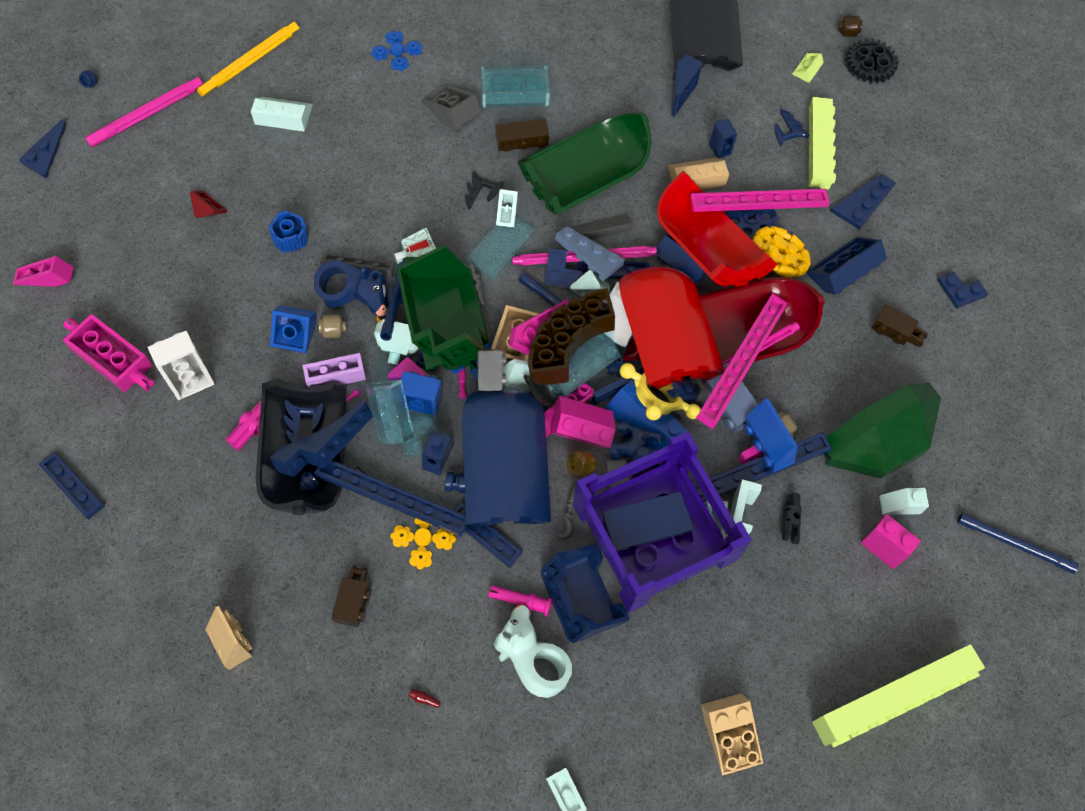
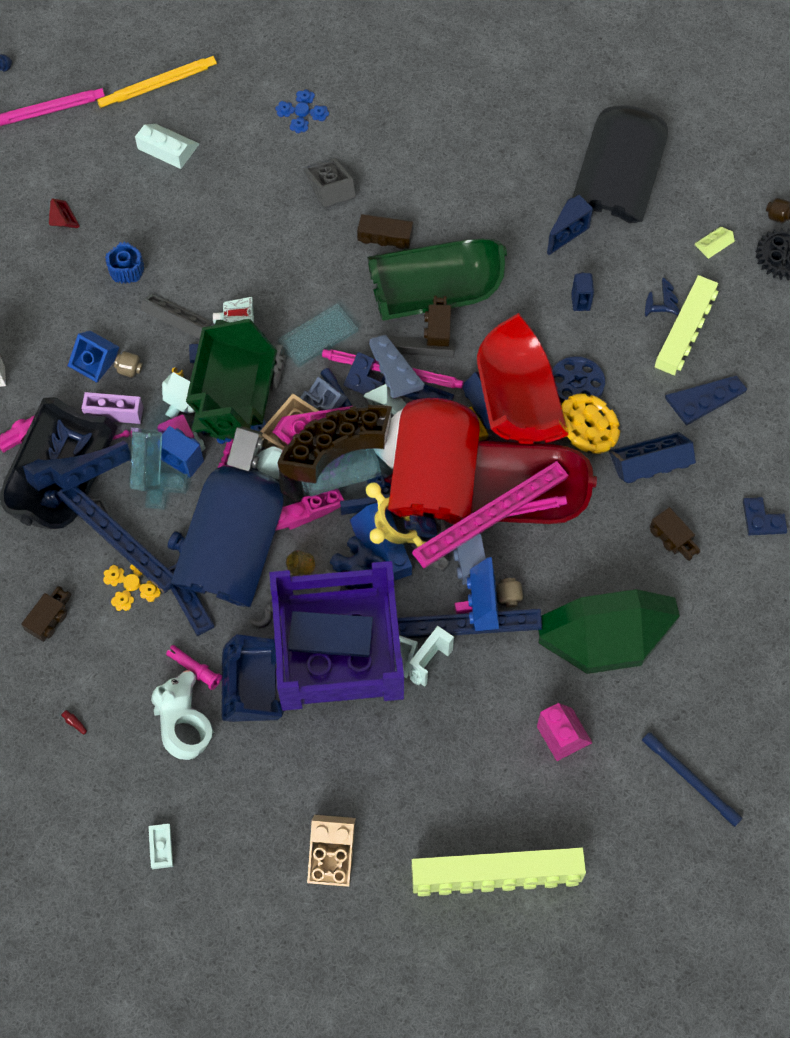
camera: 25 degrees right, 0 degrees up
(362, 285) = (169, 334): dark blue animal -> none
(388, 325) = (173, 379): dark blue piece -> none
(437, 449) = (175, 508): dark blue torso -> none
(478, 182) = (323, 267): black piece -> none
(507, 208) = (336, 300): light aqua slope -> none
(515, 86) = (398, 180): clear light blue brick -> none
(532, 298) = (323, 395): none -> sand blue slope
(583, 423) = (317, 526): dark pink slope -> none
(610, 201) = (438, 323): none -> dark brown brick
(705, 172) = (547, 320): tan slope -> none
(759, 200) = (591, 365): dark pink plate -> none
(792, 518) = (484, 673): black hinge -> none
(904, 501) = (595, 702): light aqua slope -> none

